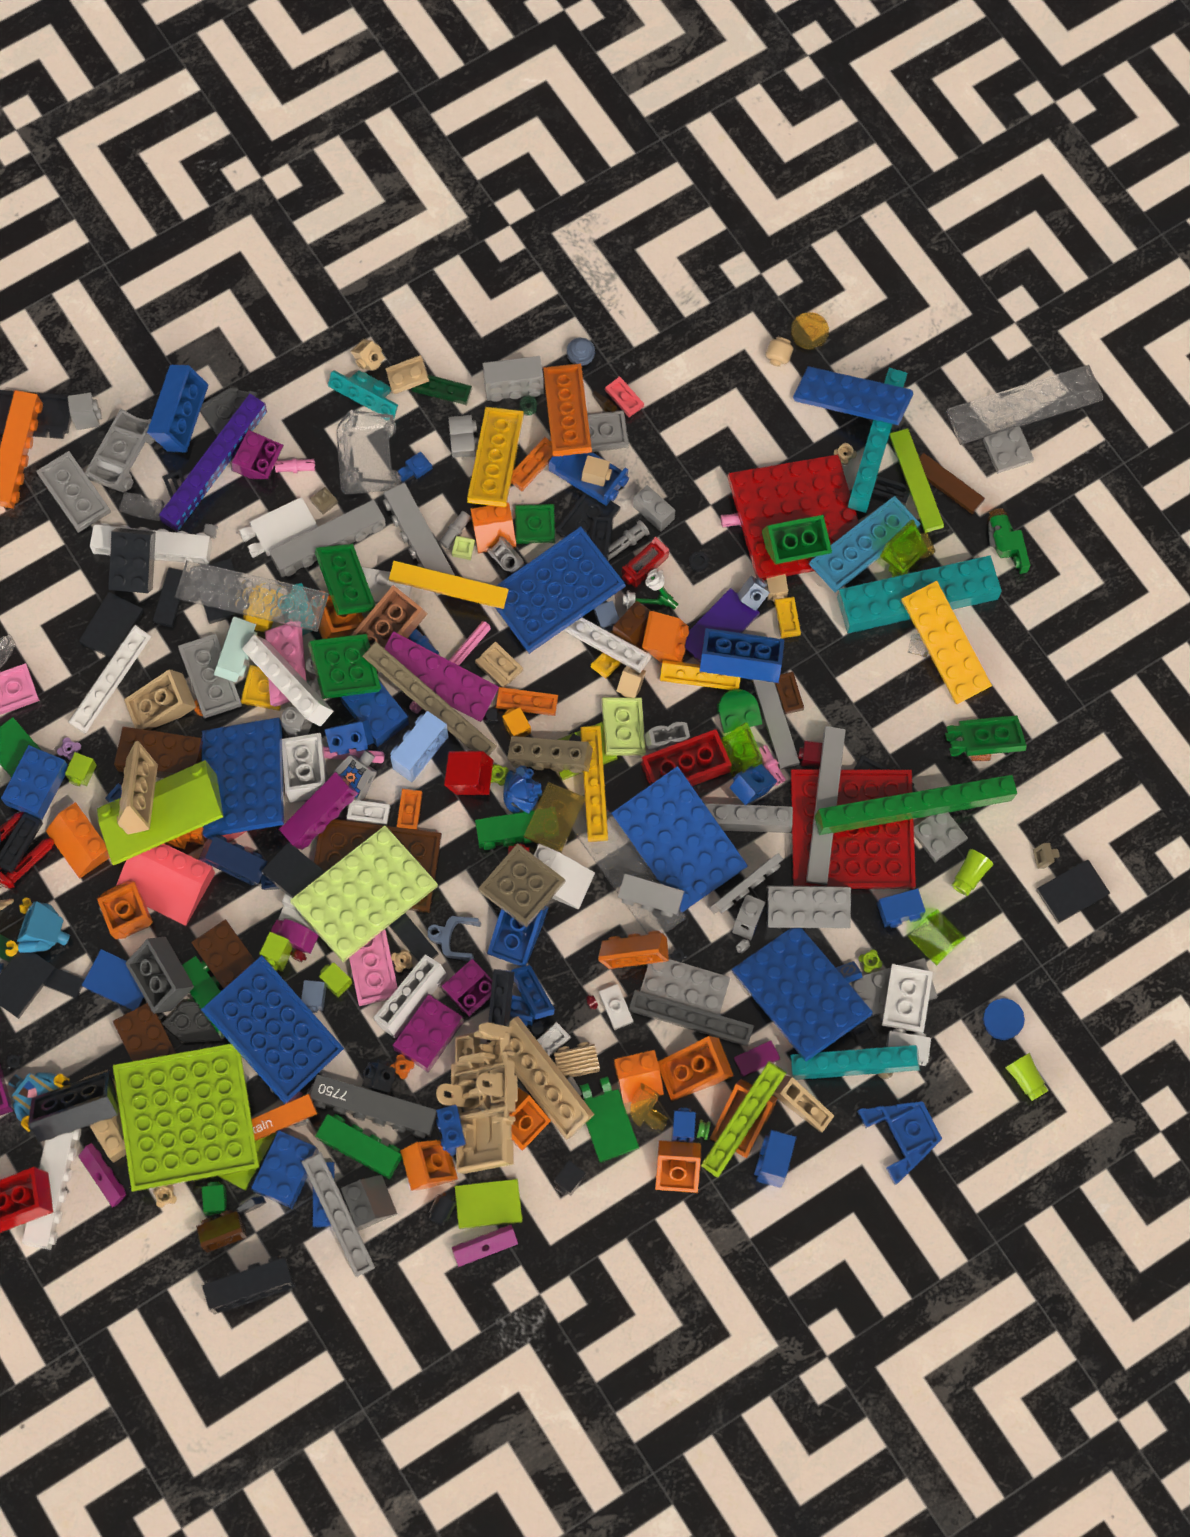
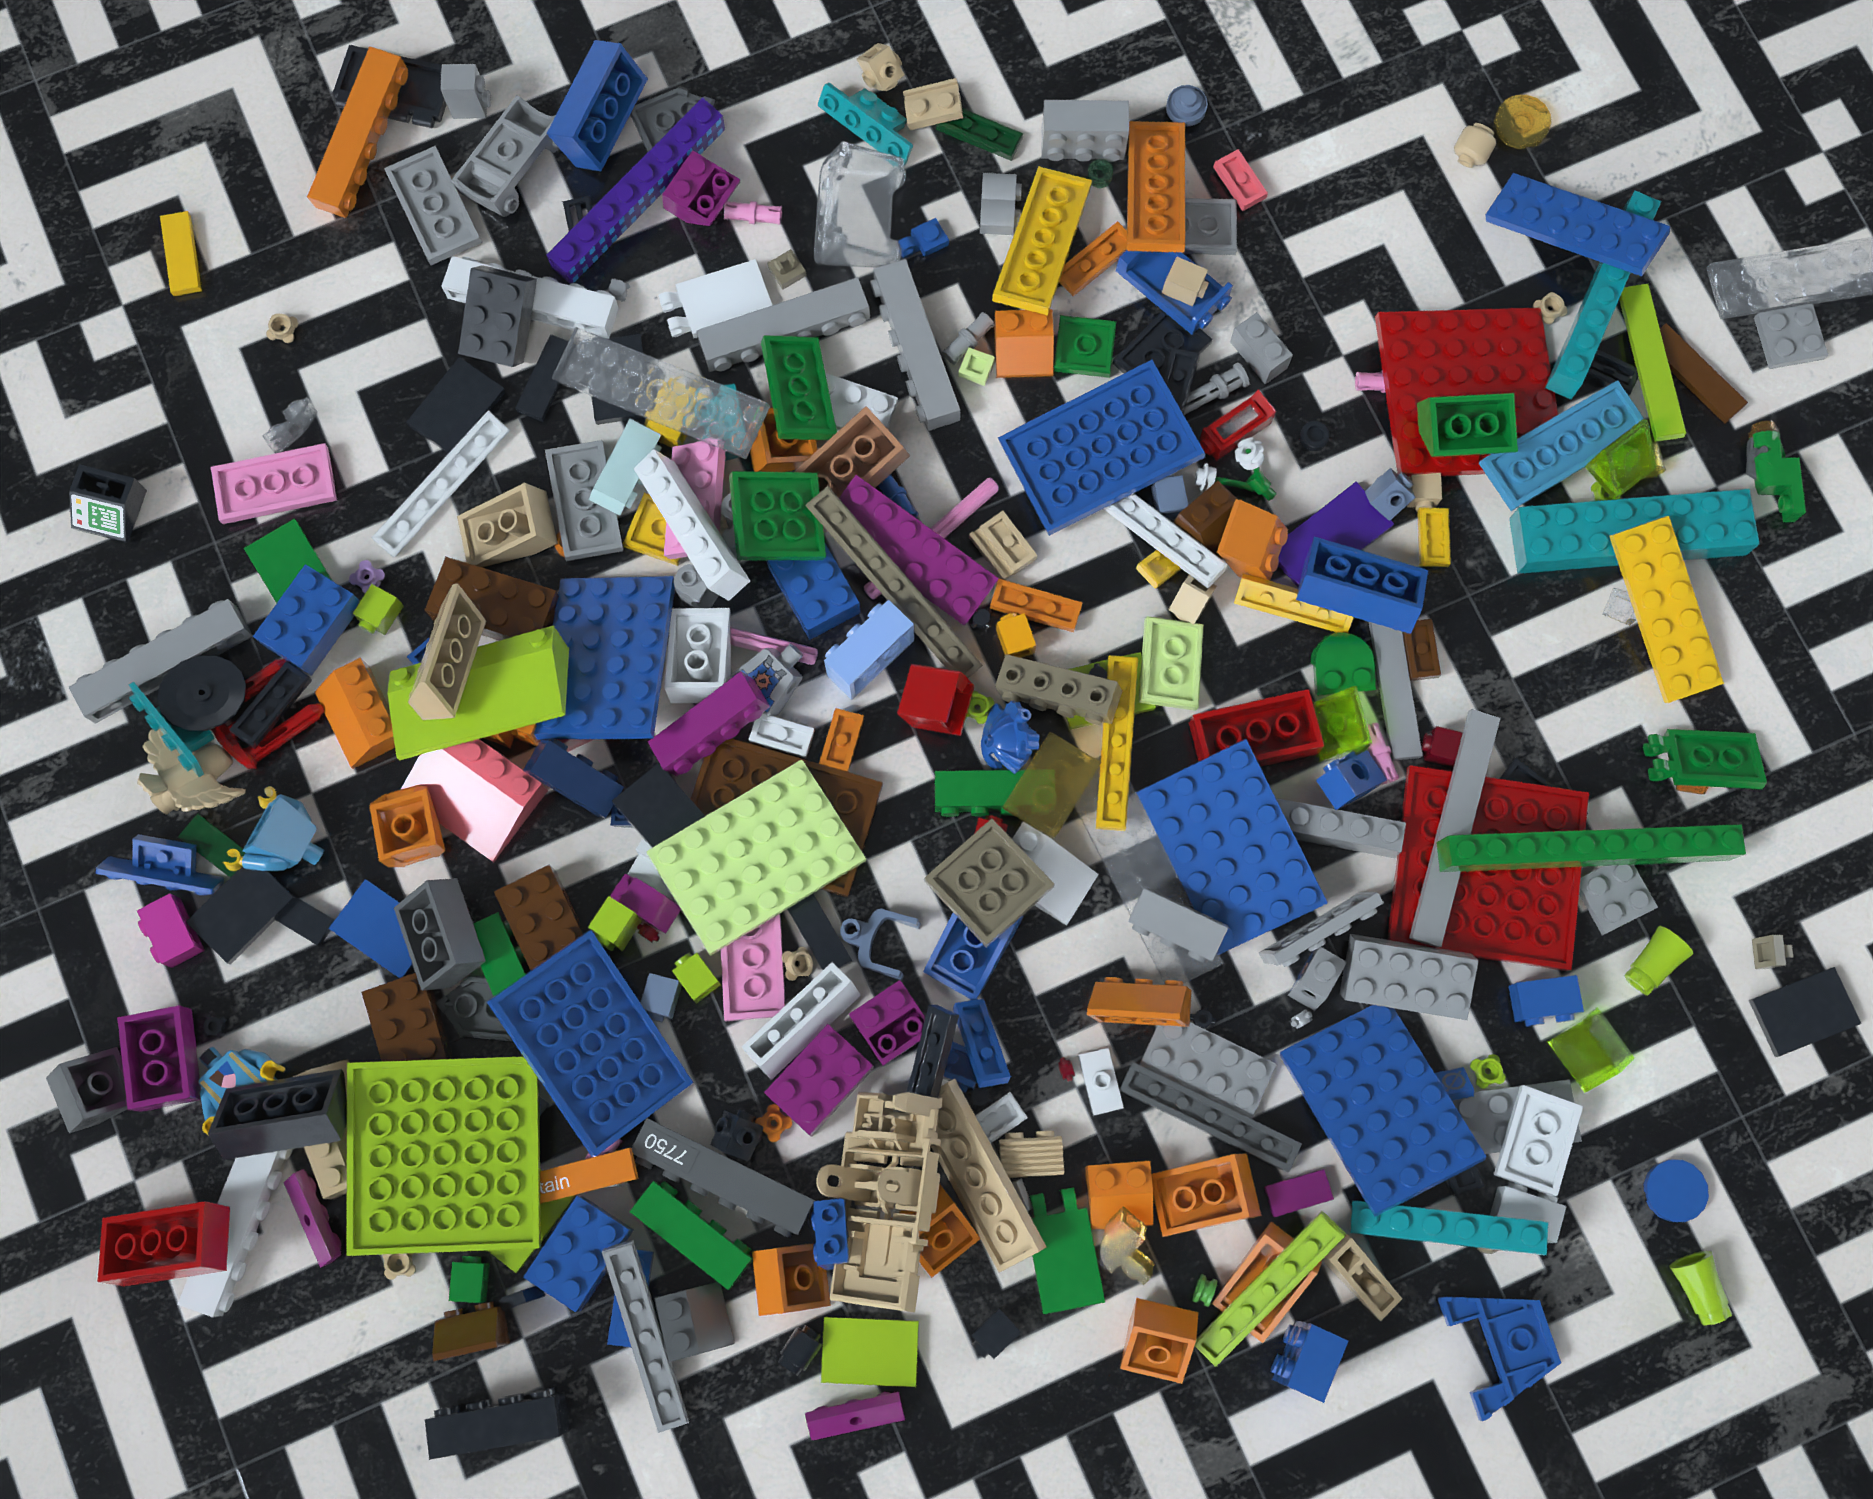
camera: 10 degrees right, 5 degrees up
(141, 507) = (524, 240): clear slope -> none
(349, 736) = (769, 620): blue brick -> none
(448, 584) = (947, 417): yellow tile -> none
(504, 553) = (1033, 383): light grey piece -> none
(605, 403) = (1210, 184): dark brown bar -> none
(662, 735) = (1232, 687): light grey brick -> none
(683, 1125) = (1176, 1284): blue brick -> none

